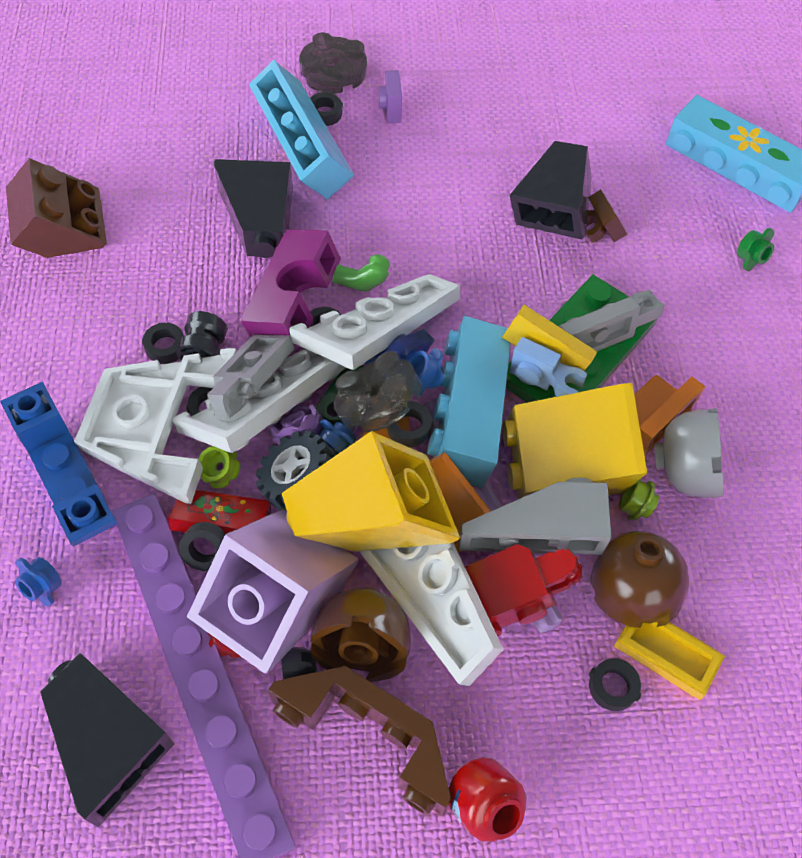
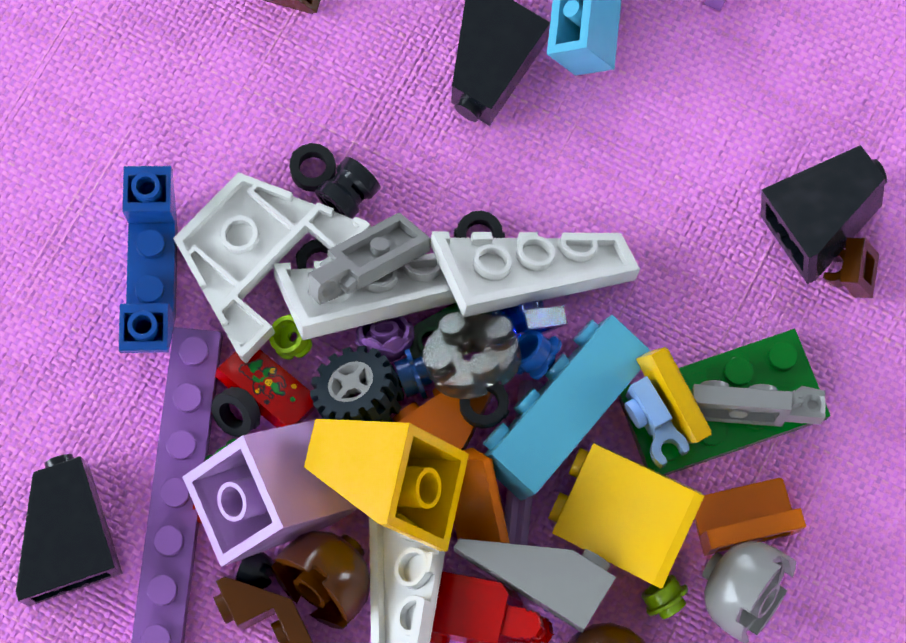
camera: 30 degrees right, 15 degrees up
(37, 580) = (78, 361): blue plate -> none
(299, 263) = (490, 151): magenta arch -> none
(364, 278) = (549, 200): bright green arm -> none

